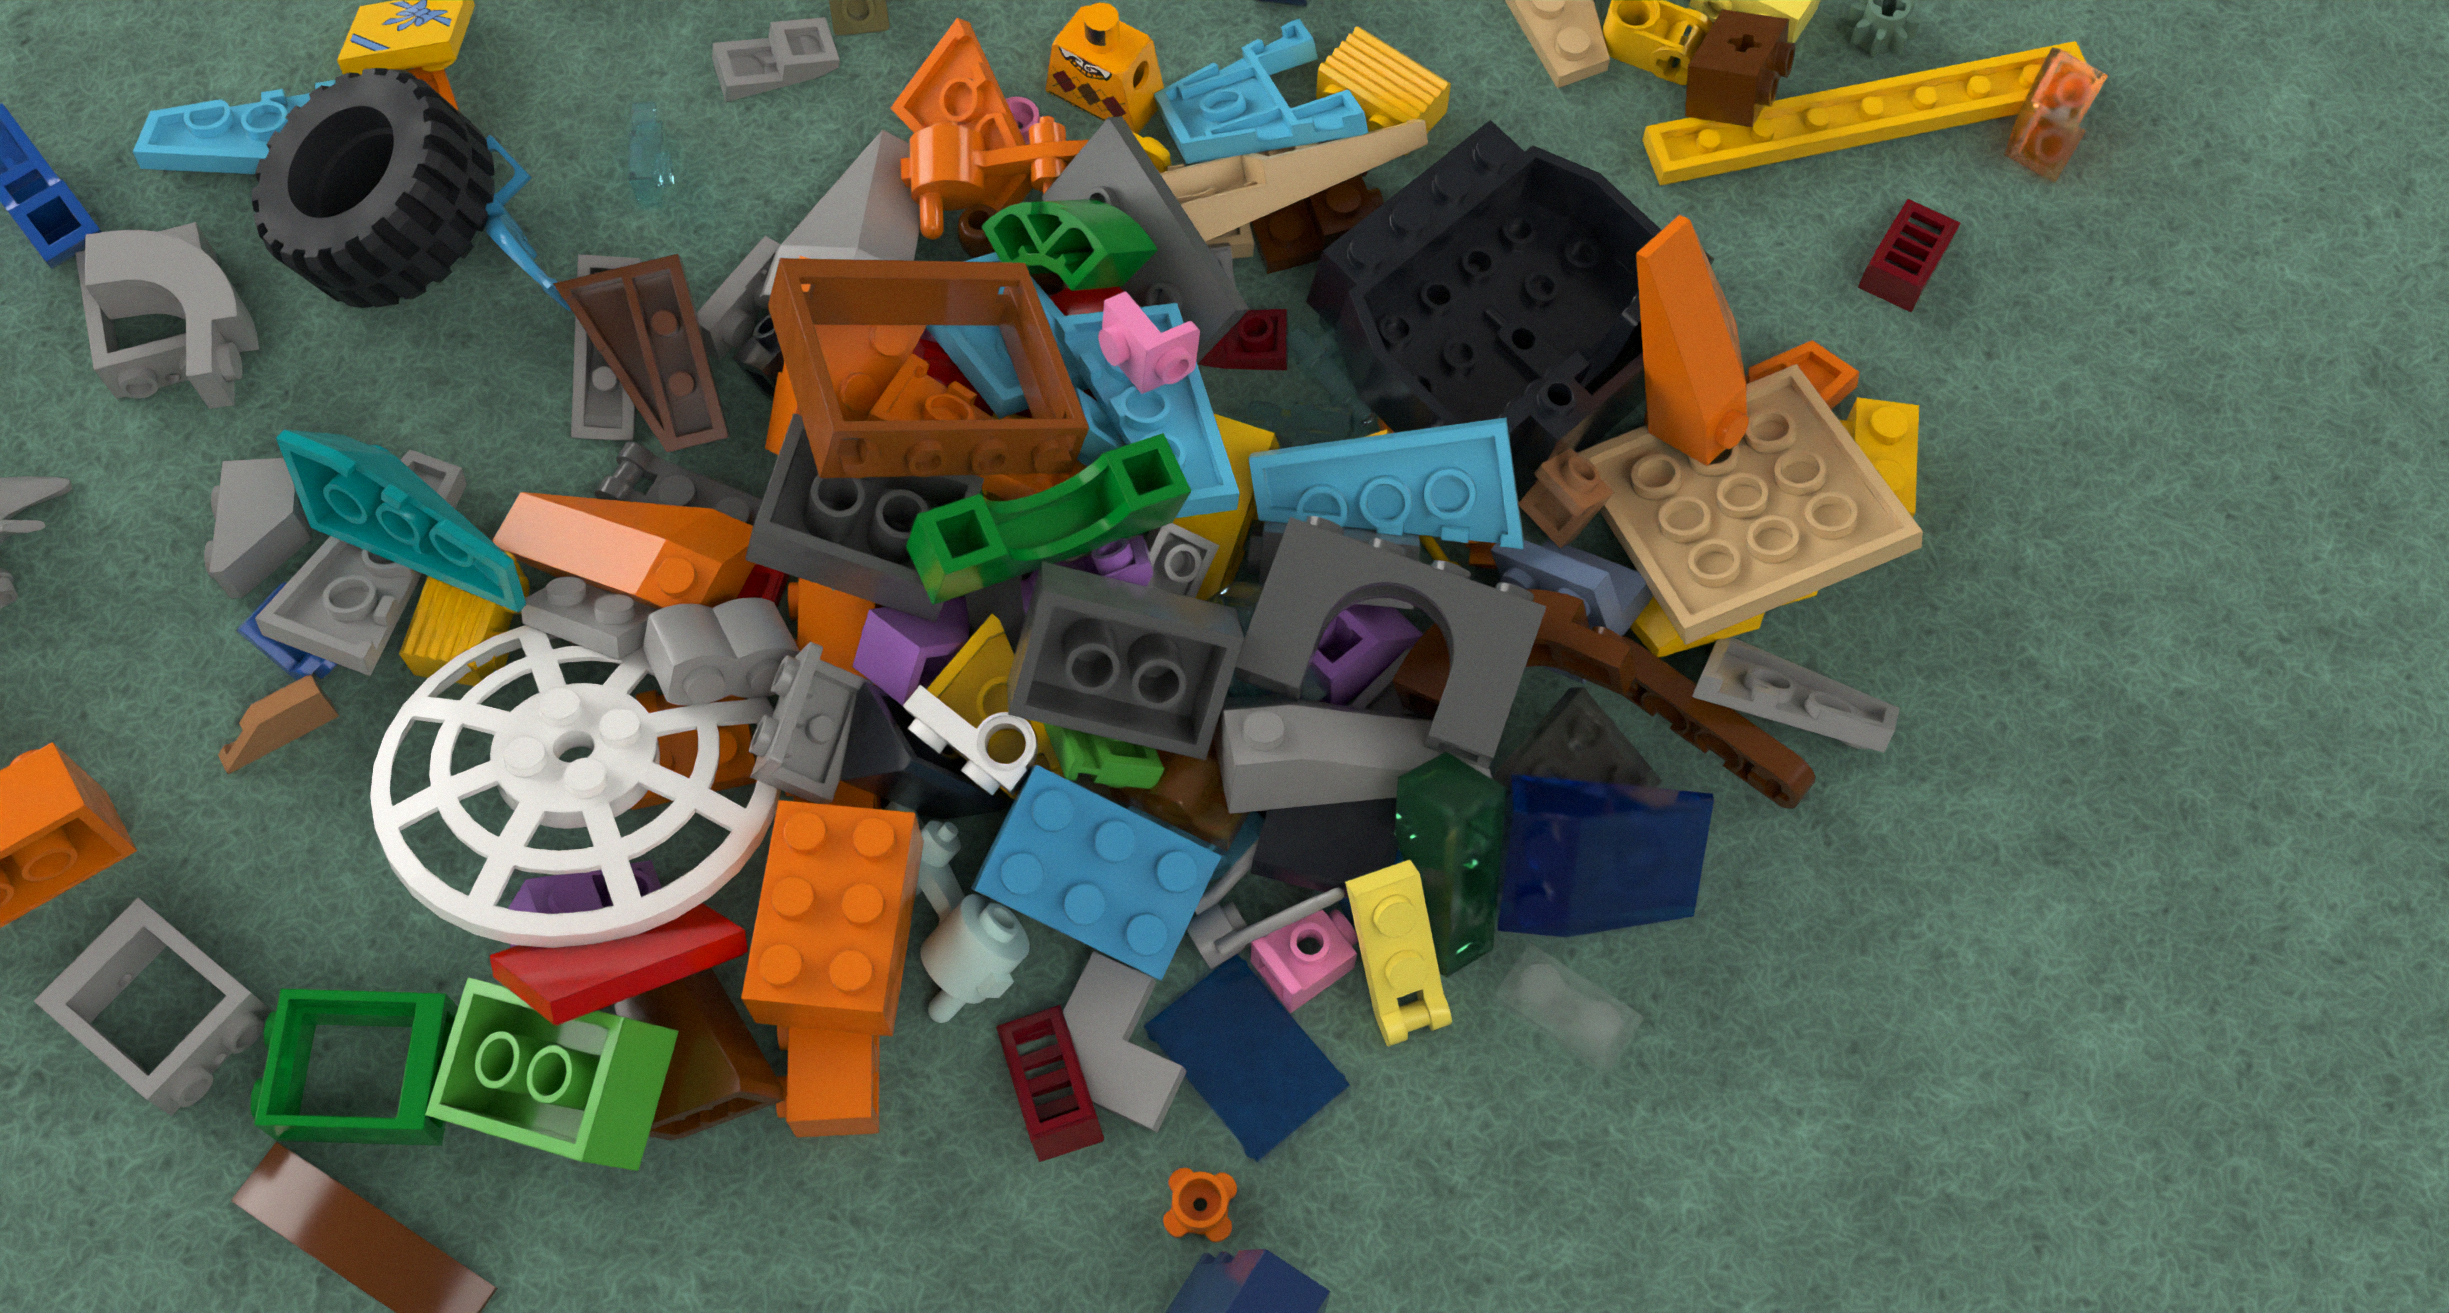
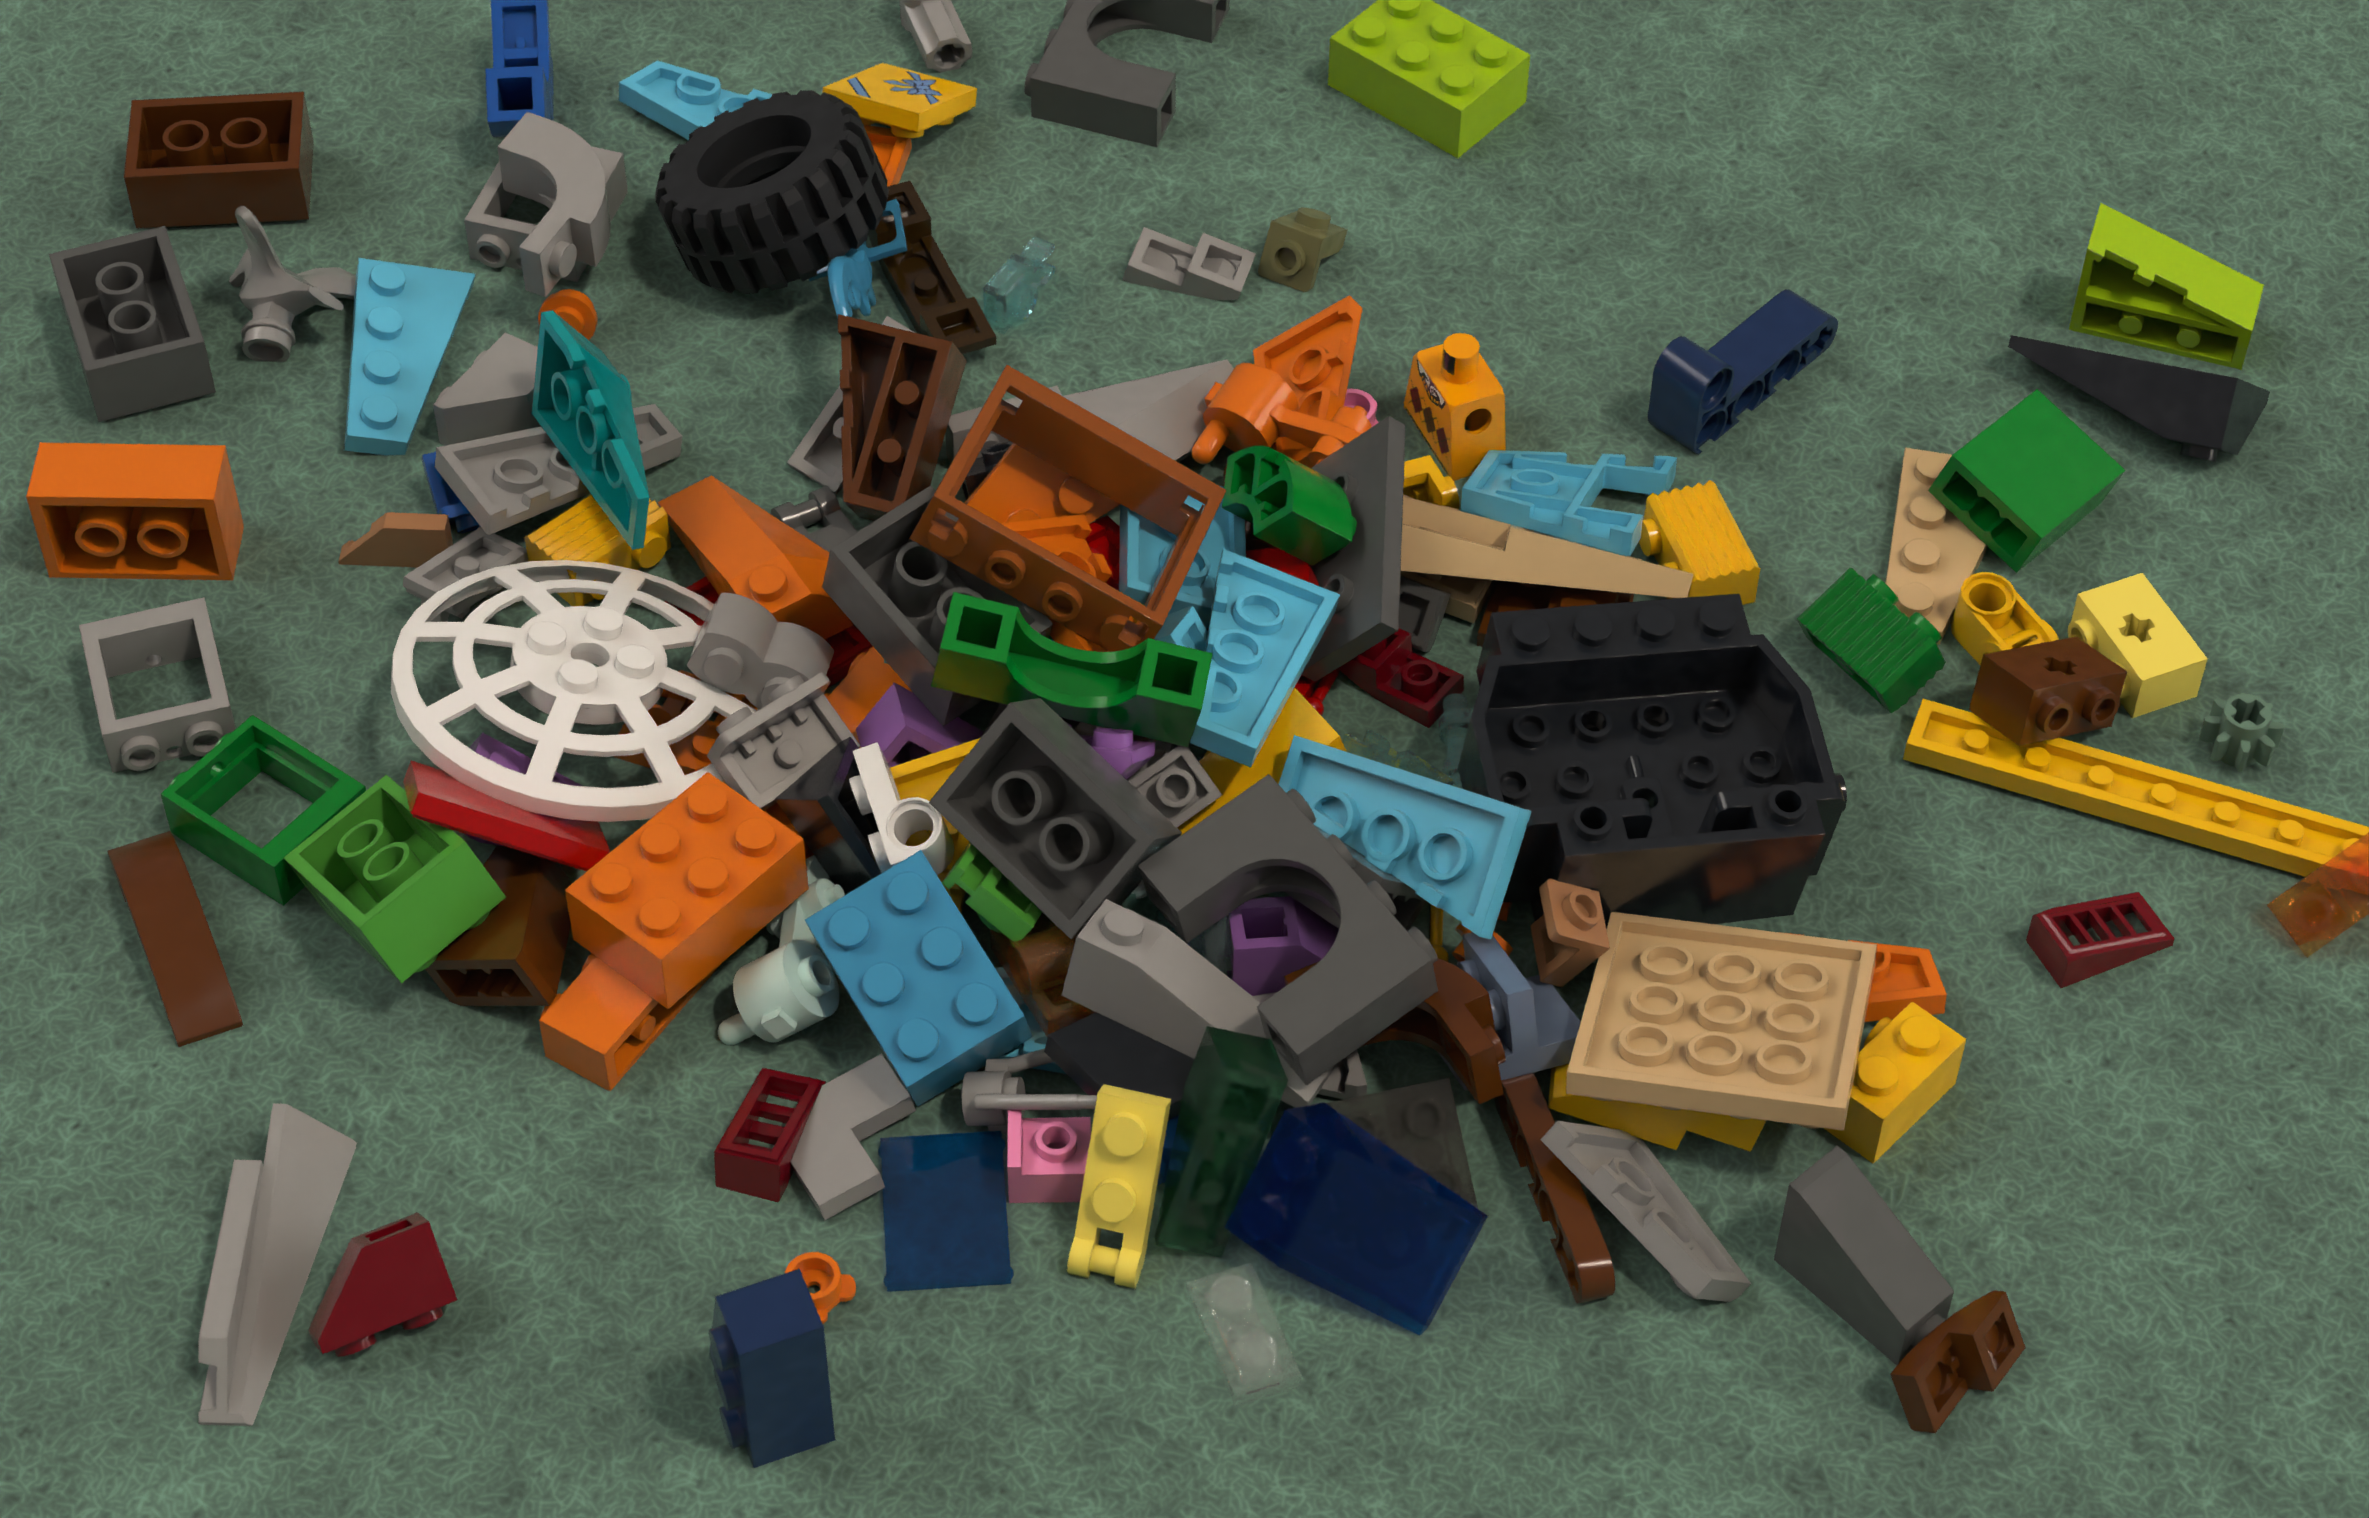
camera: 35 degrees right, 15 degrees down
(119, 526) = (397, 347): none -> medium azure wing
(261, 408) = (574, 309): none -> orange plate
(361, 716) = (464, 558): none -> light grey plate
(569, 202) = (925, 279): none -> dark brown slope
(588, 616) = (680, 580): light grey plate -> none
(1141, 349) = (1269, 610): bright pink bracket -> none
(1573, 94) = (1873, 639): none -> green brick
(1689, 347) = (1757, 843): orange wedge -> none
(1980, 641) = (1860, 1257): none -> dark grey slope
(2098, 669) = (1960, 1354): none -> reddish brown slope

